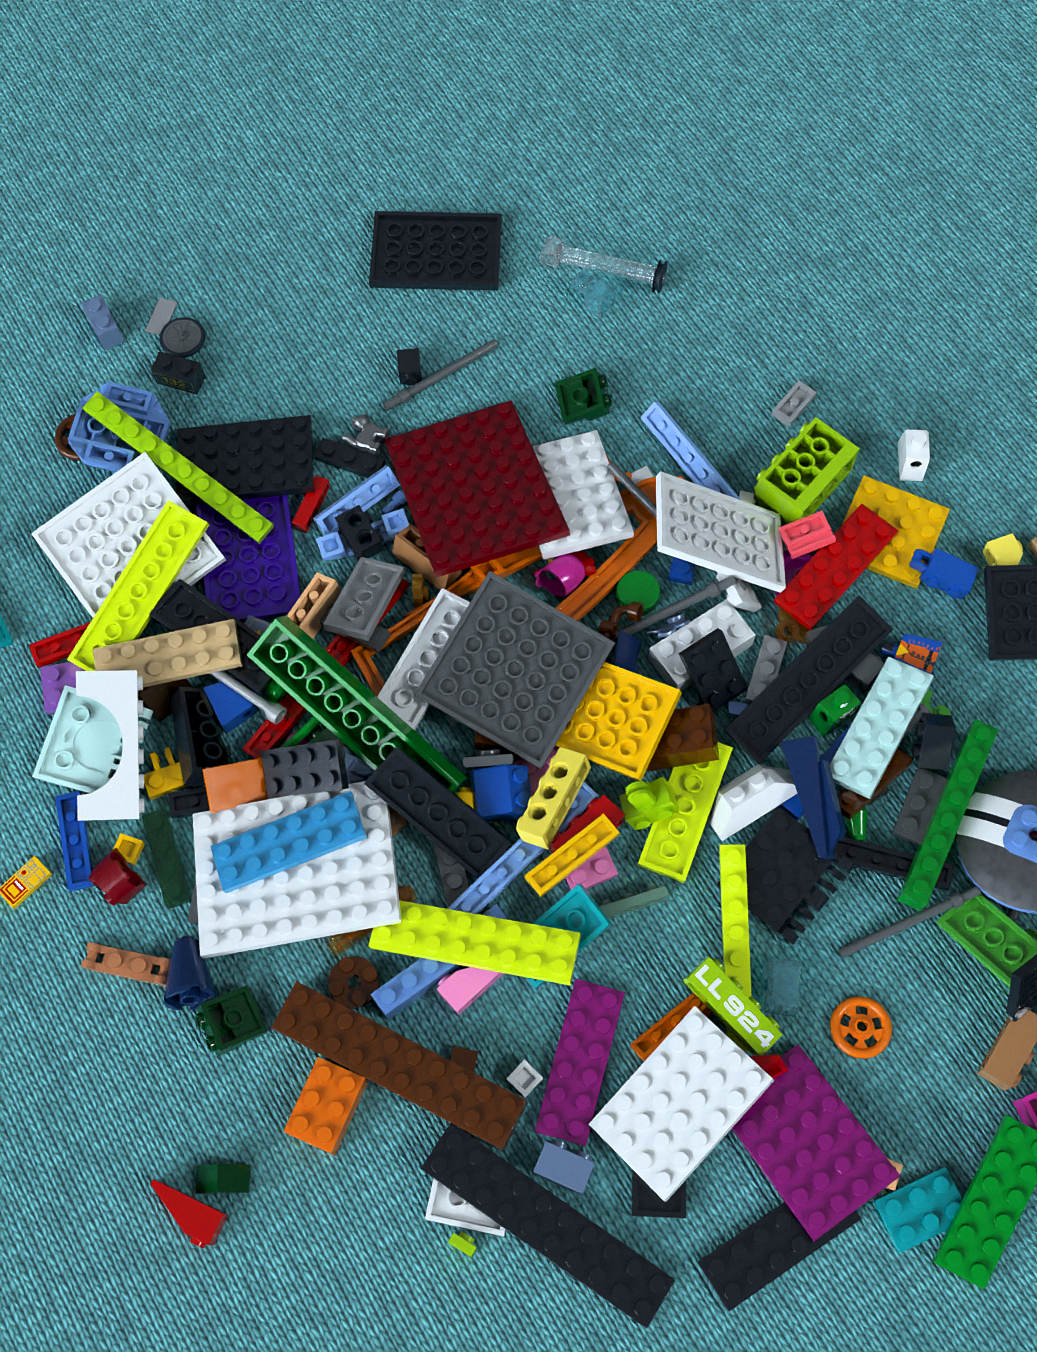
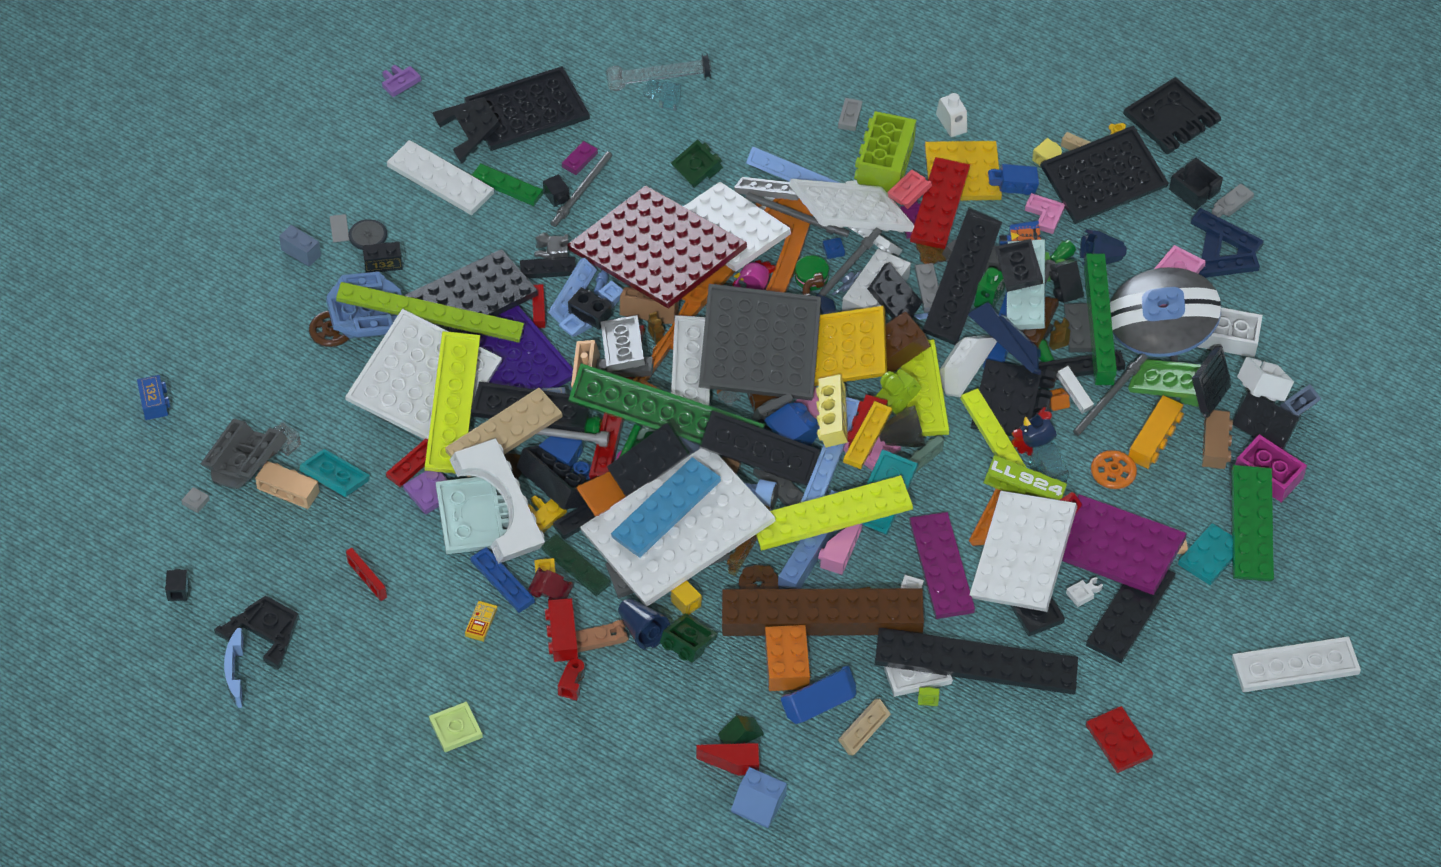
camera: 30 degrees left, 15 degrees down
(74, 1009) = (572, 674): none -> red leg
(91, 946) = (561, 630): none -> red brick
(190, 1285) = (759, 797): none -> medium blue slope
(236, 732) = (582, 466): none -> blue plate
(258, 965) = (686, 598): none -> yellow brick
(299, 298) = (440, 177): none -> white plate
(321, 164) = (400, 81): none -> medium lavender hinge
(338, 1177) = (820, 696): none -> blue piece
(364, 336) = (508, 184): none -> green plate
(364, 1248) = (864, 726): none -> tan plate
(369, 246) = (476, 121): none -> black wing
(420, 870) = (765, 491): none -> light blue piece
(460, 335) = (579, 158): none -> magenta plate
(564, 1166) = (969, 625): sand blue brick -> none
(625, 863) = (903, 430): none -> clear smoke cone
(638, 459) = (765, 188): none -> light grey plate
(728, 1187) = (1082, 592): none -> white plate
(782, 939) = (1034, 432): none -> dark blue piece
(845, 895) = (1059, 399): none -> orange slope
(868, 895) = (1075, 389): none -> white piece
(880, 701) = (1019, 265): none -> black plate
(889, 811) = (1061, 336): none -> pearl gold plate
(940, 1001) = (1156, 431): none -> light orange brick
(953, 695) = (1064, 251): none -> green cone
(966, 630) = (1049, 211): none -> bright pink plate
(1003, 711) = (1100, 243): none -> dark blue cone

